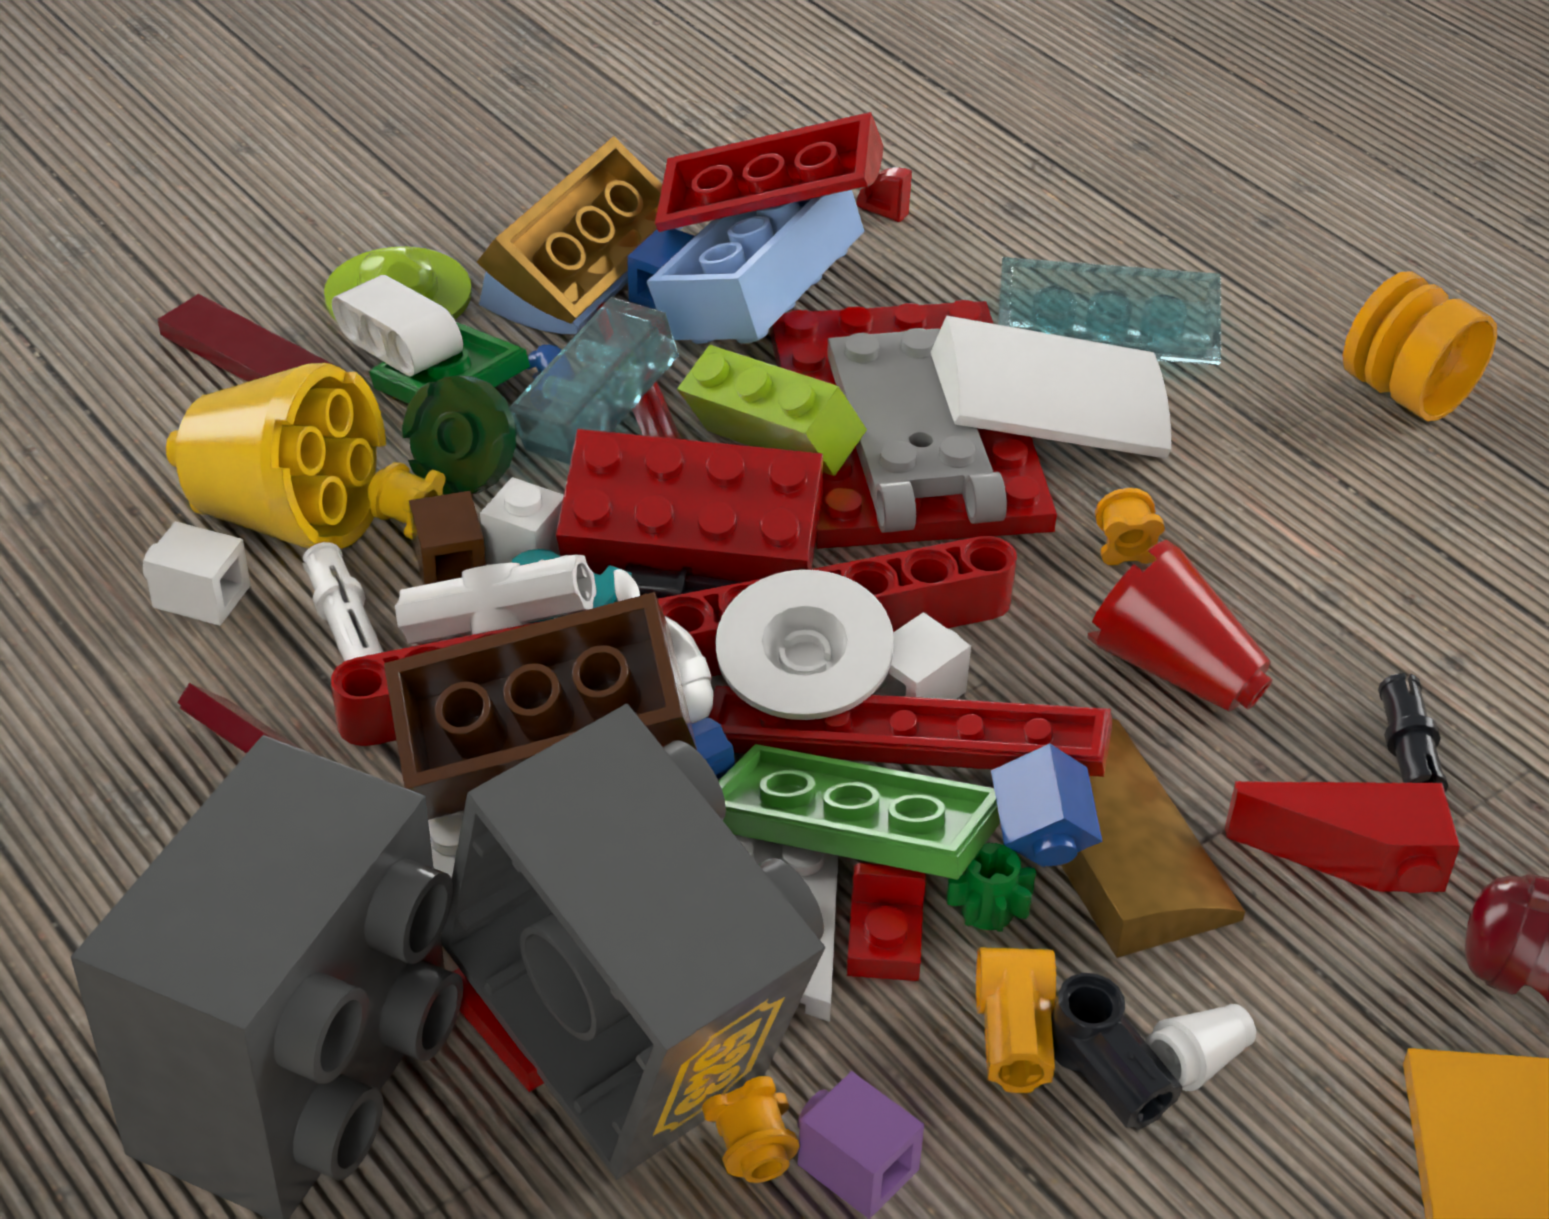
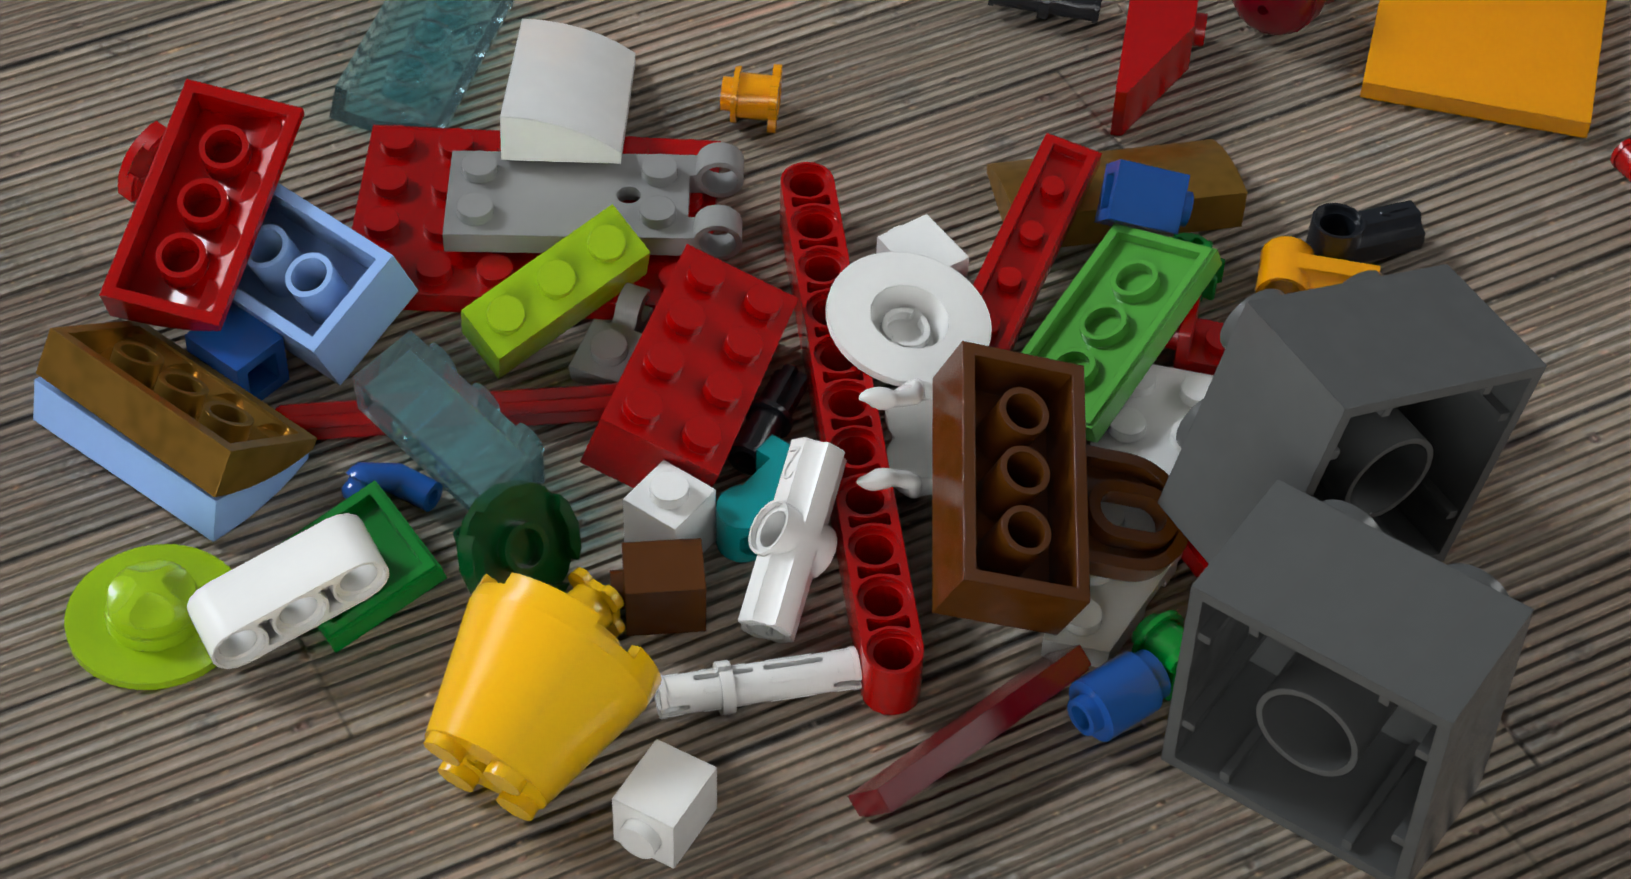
camera: 80 degrees left, 5 degrees up
(231, 340) = (252, 751): dark red tile -> none
(1181, 632) = (911, 90): red cone -> none
(1202, 1042) = (1352, 183): white cone -> none

